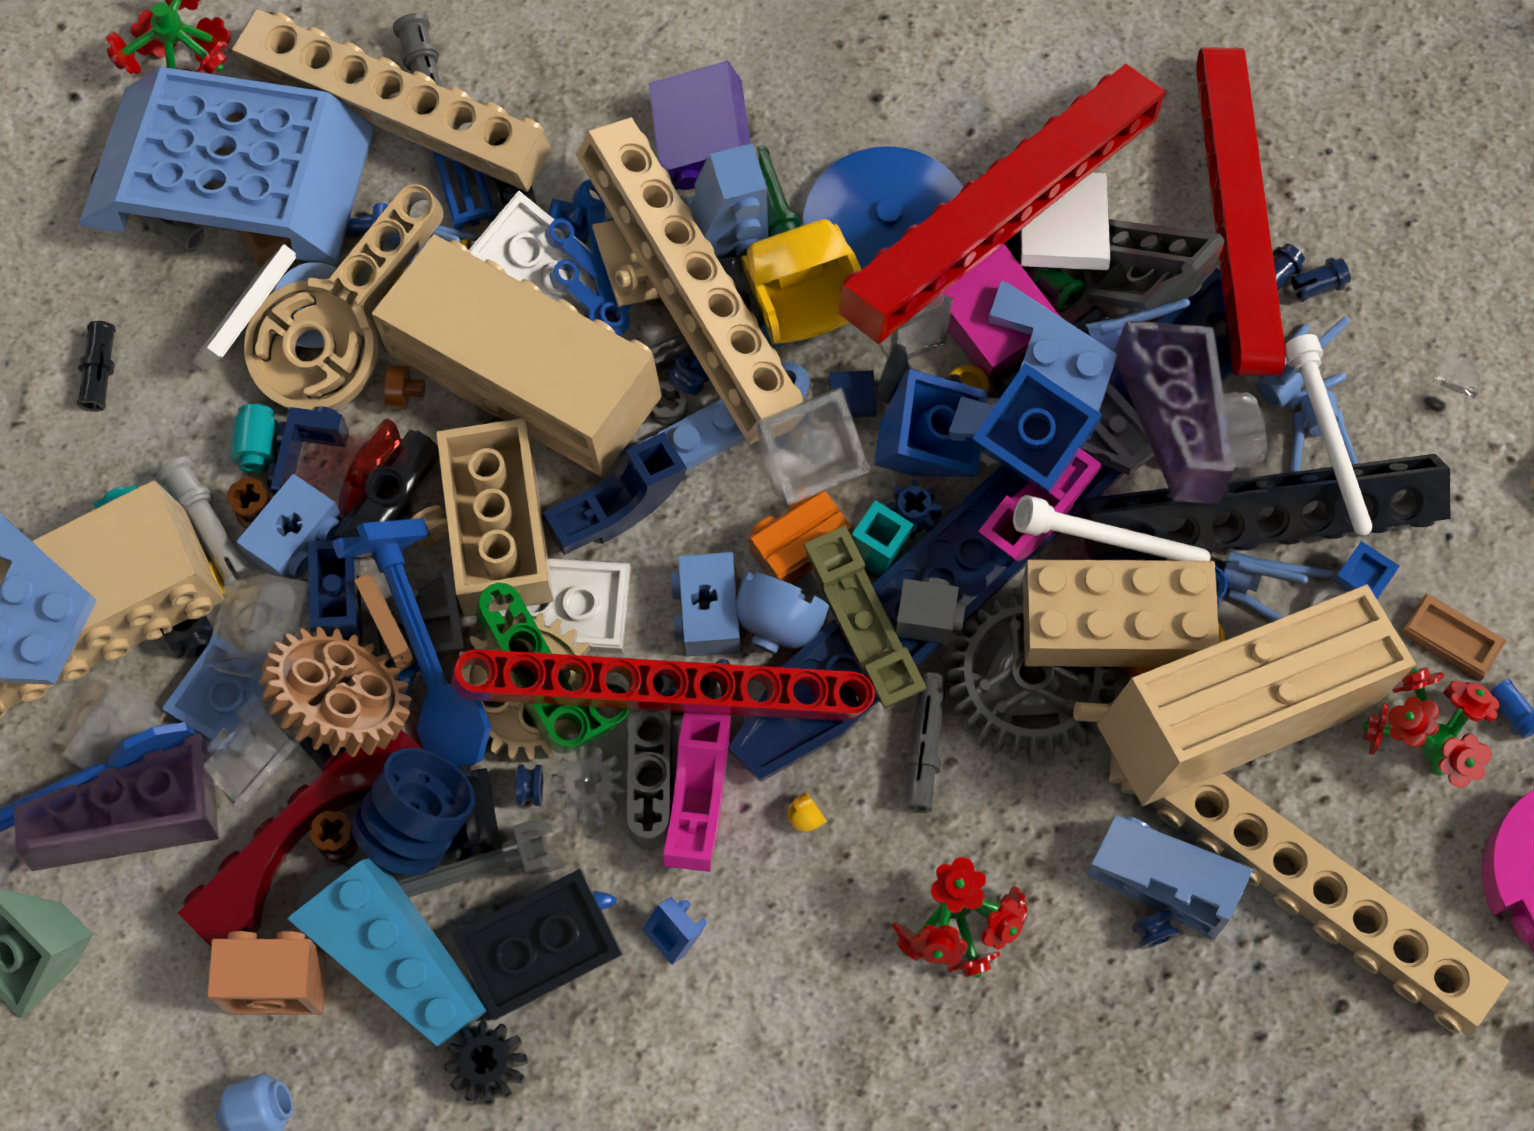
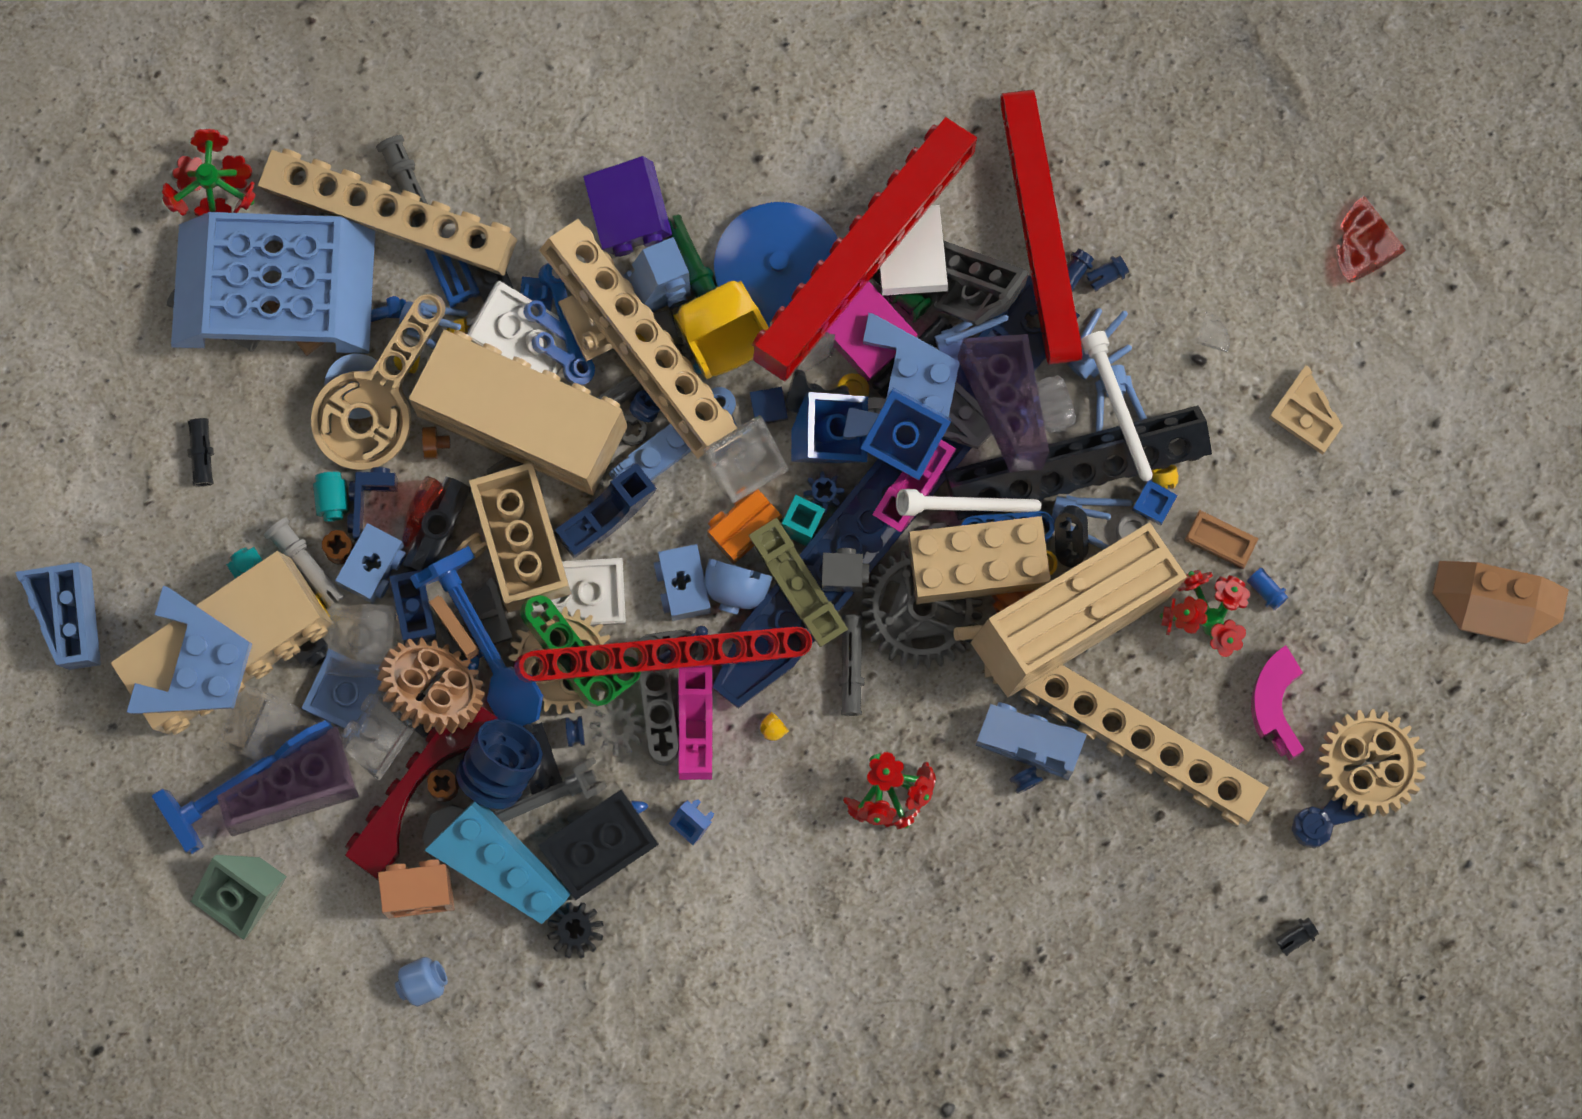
camera: 10 degrees left, 10 degrees up
(244, 308) = (307, 397): white tile -> none
(1238, 602) = (1065, 536): none -> black beam
(1385, 543) = (1166, 477): none -> yellow hinge

